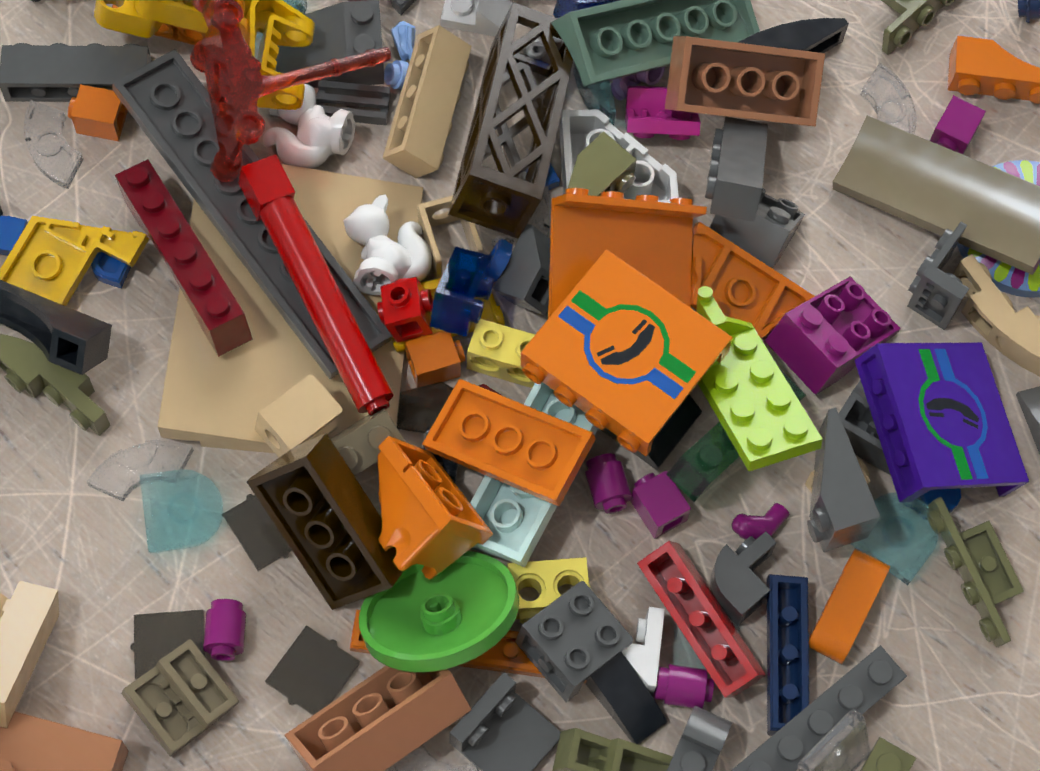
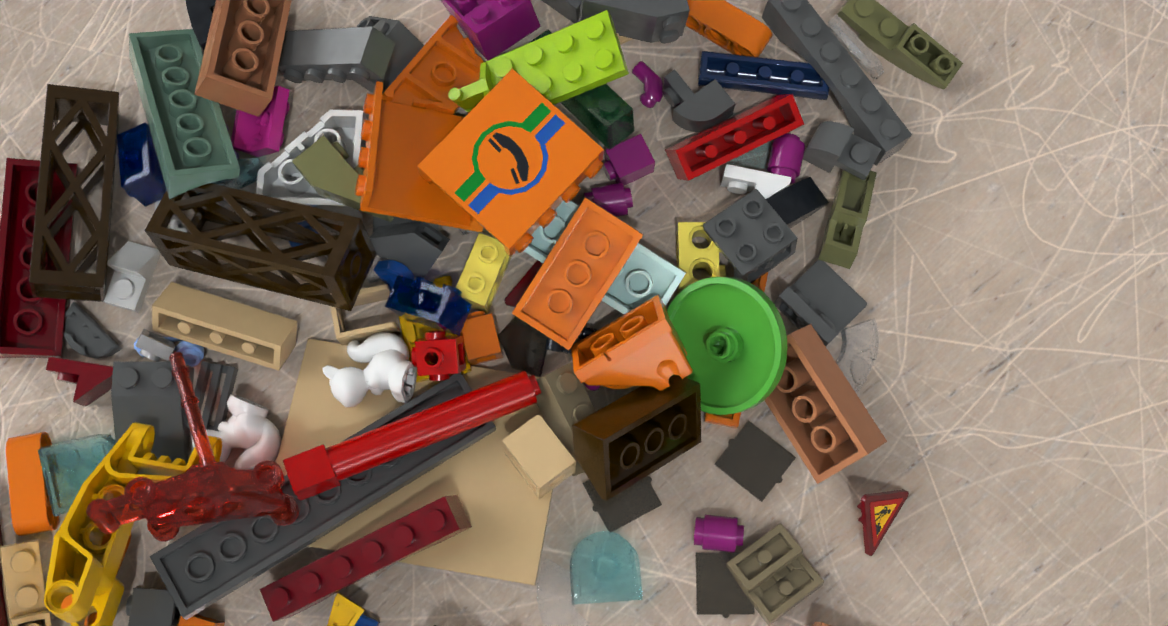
camera: 80 degrees left, 10 degrees up
(399, 35) = (154, 346): none -> light grey plate

